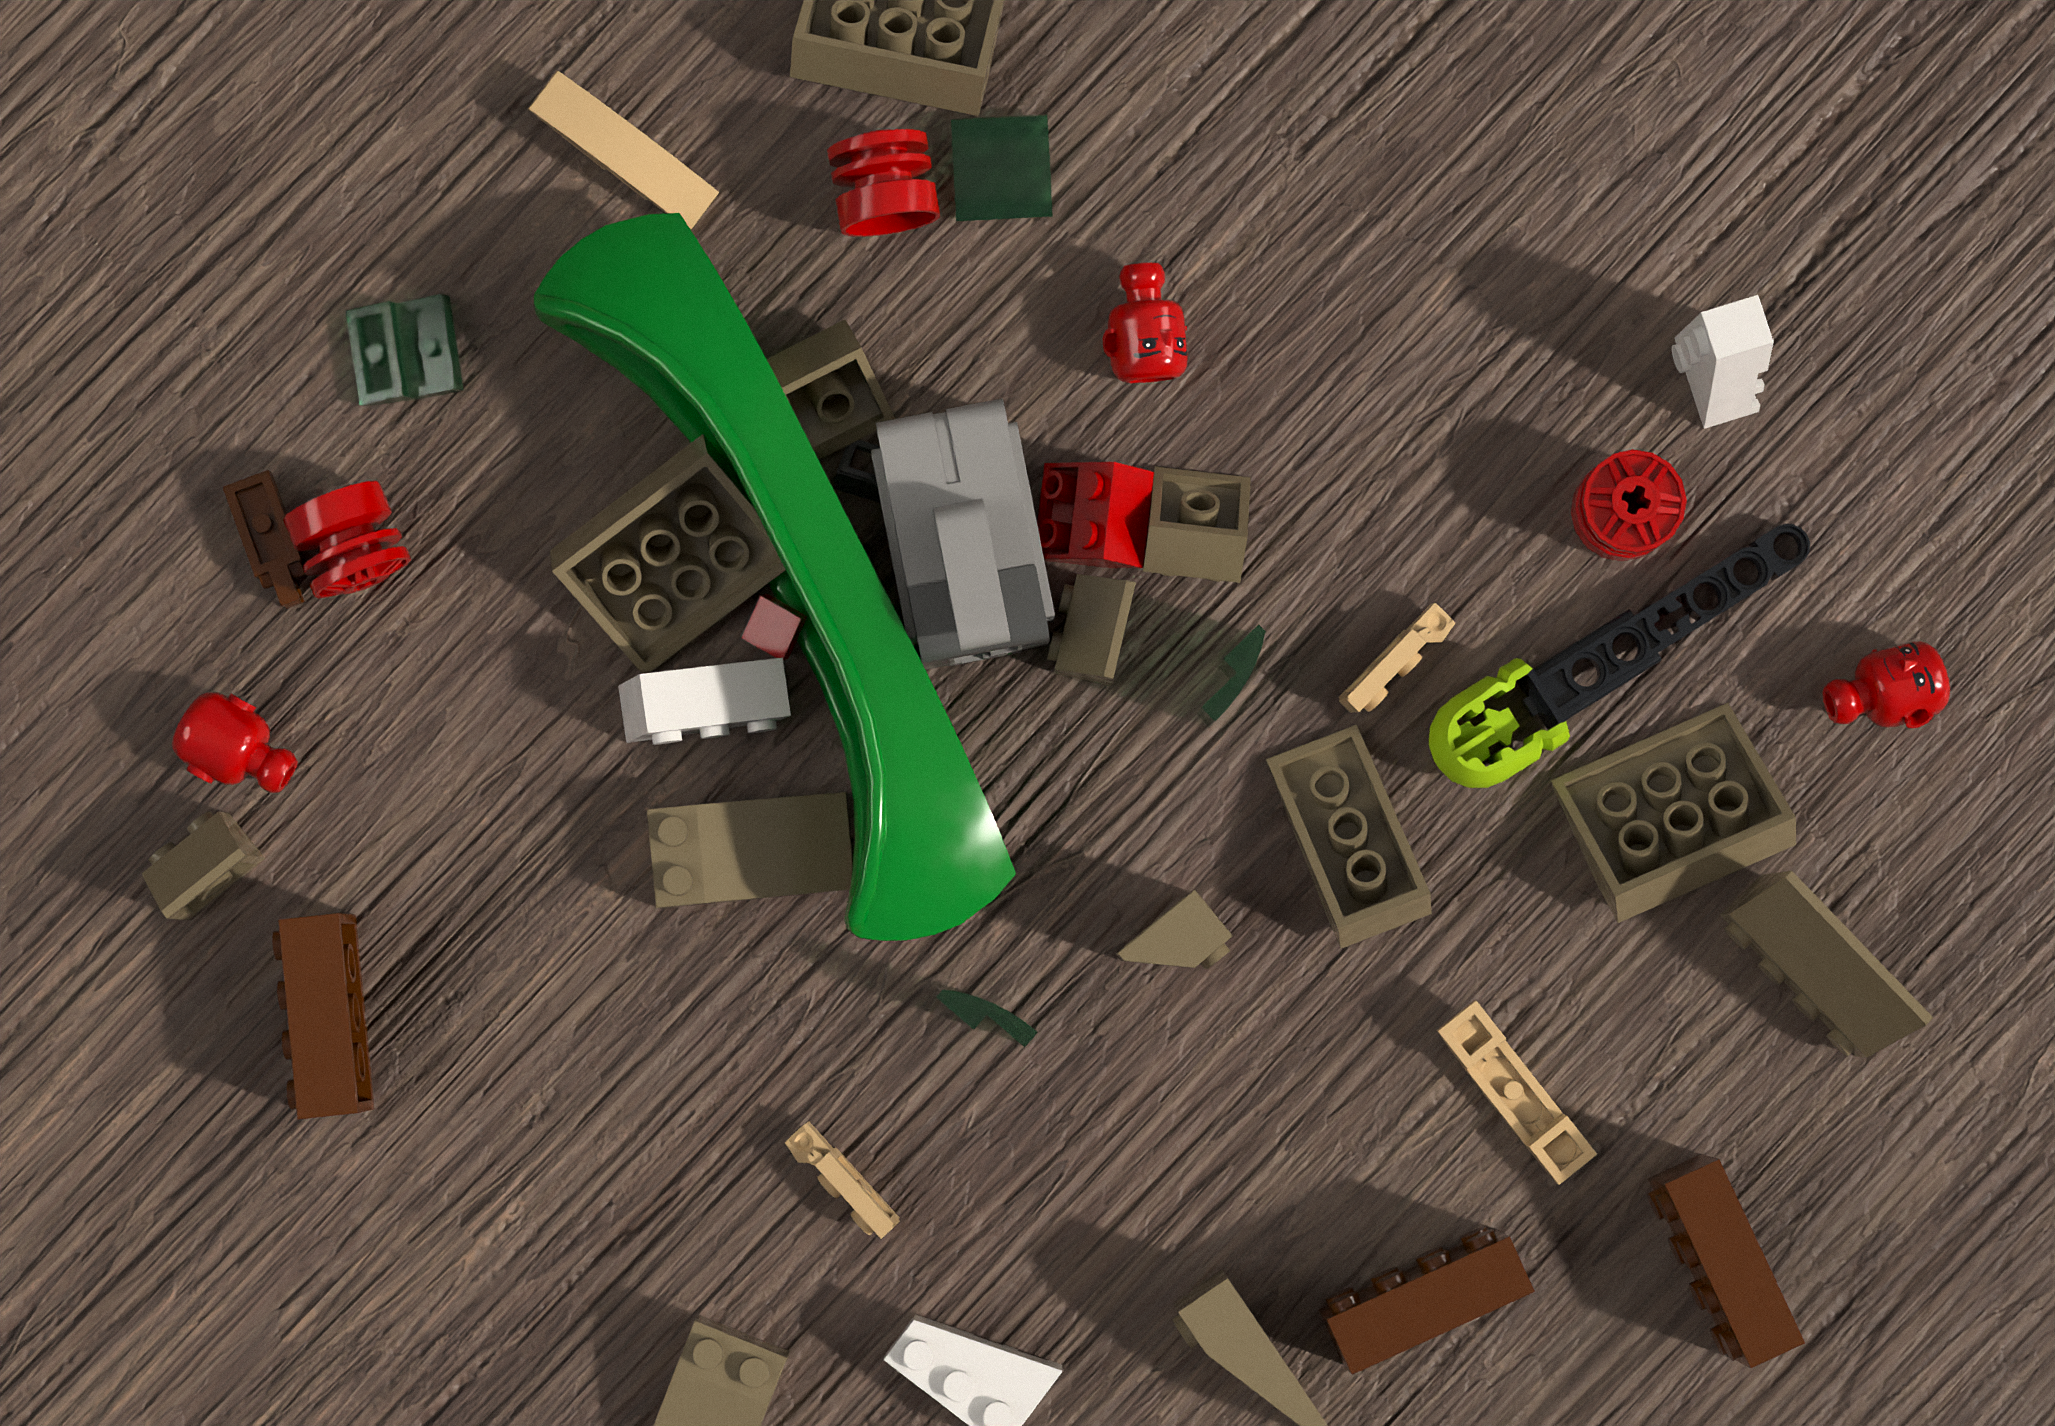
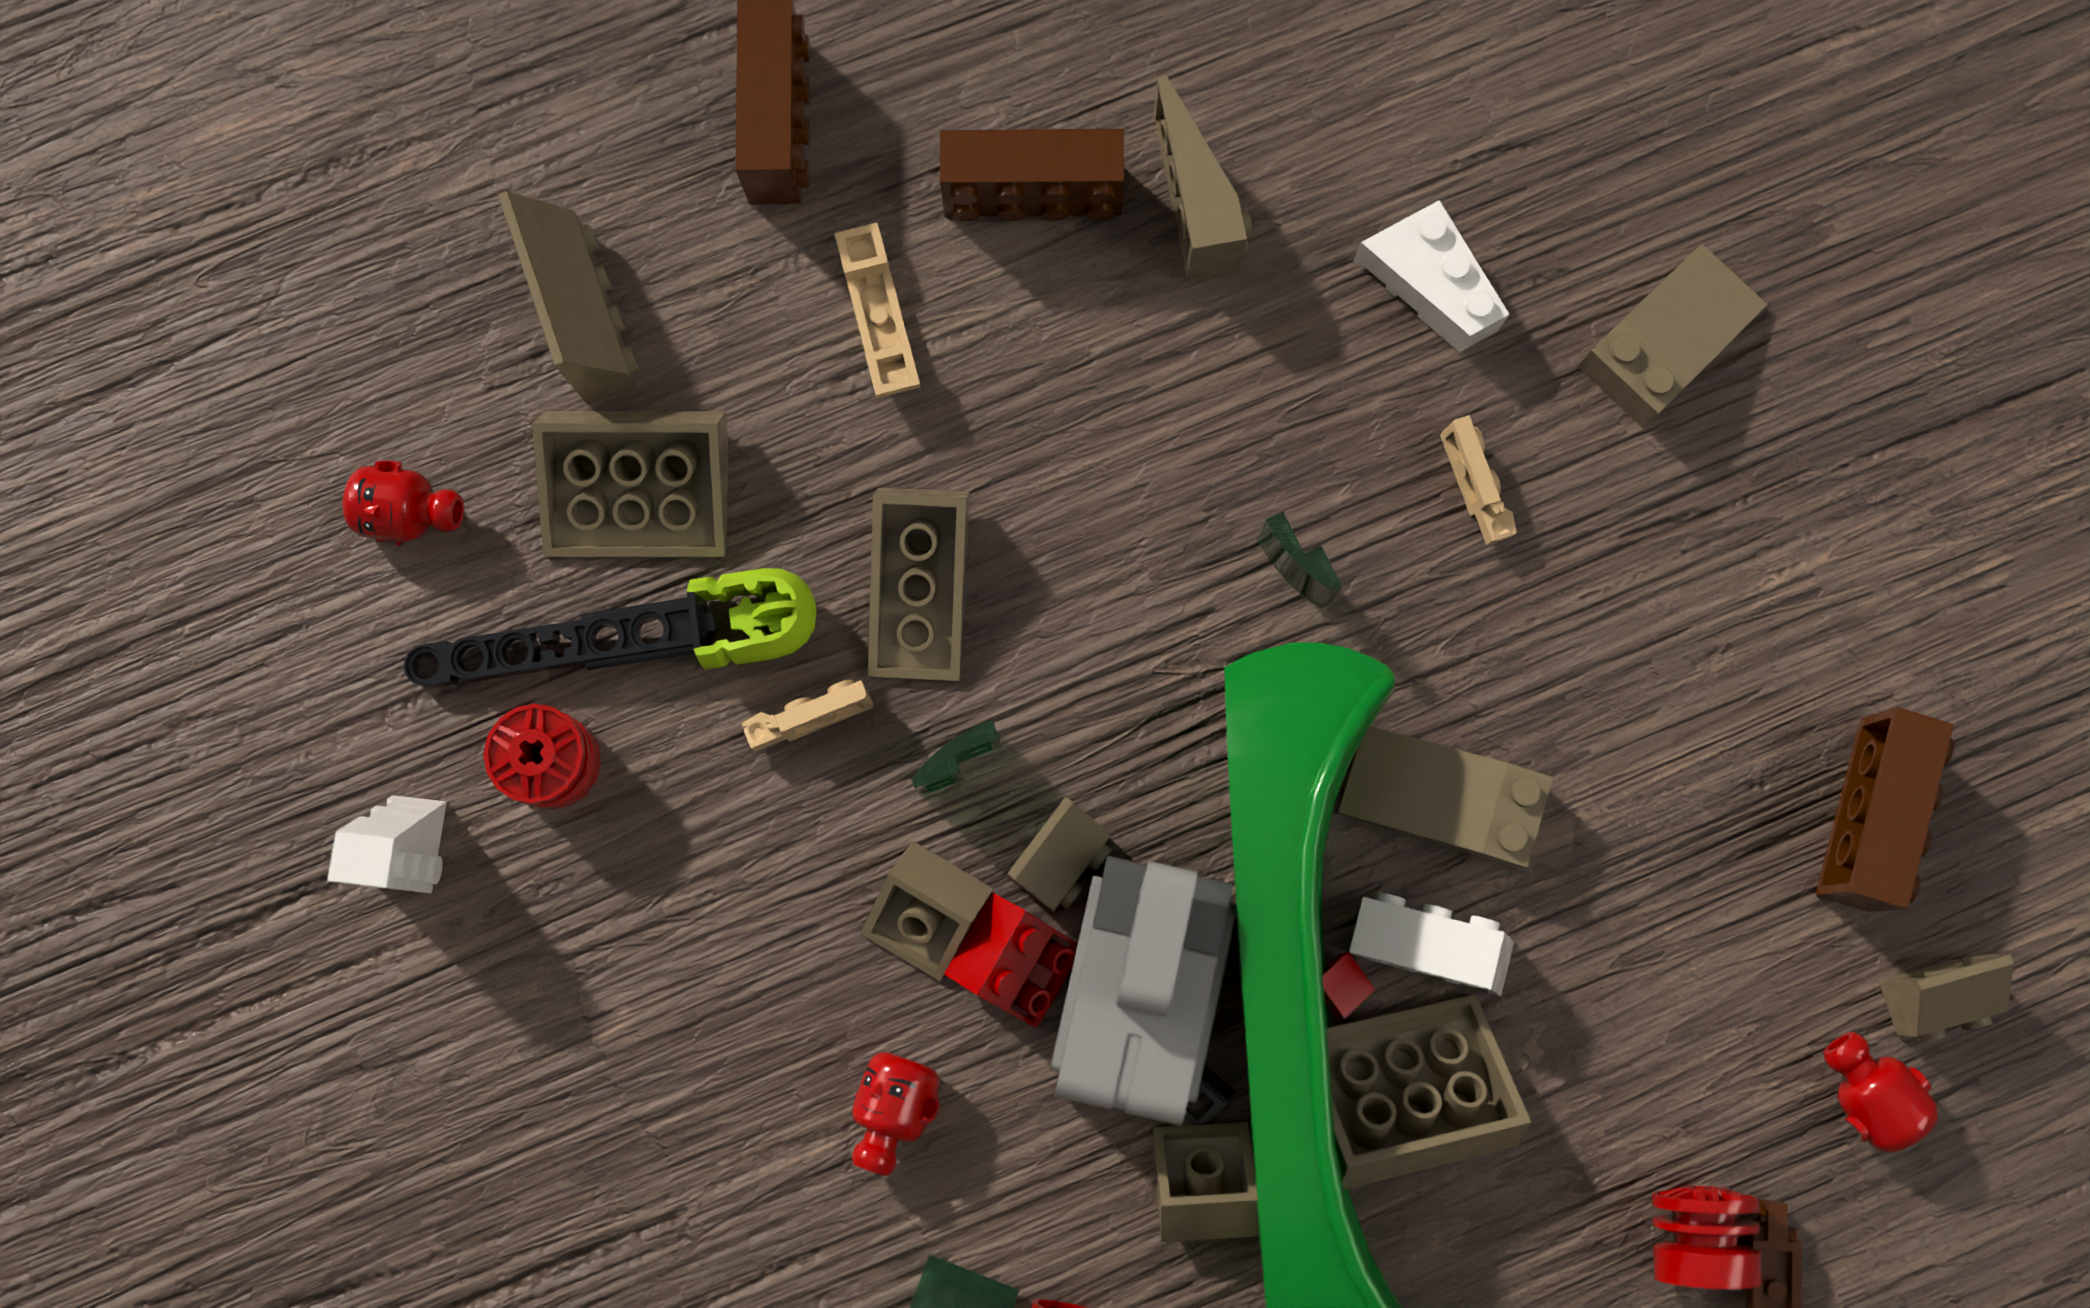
camera: 150 degrees left, 5 degrees down
(1180, 937) = (1107, 554): dark tan slope -> none

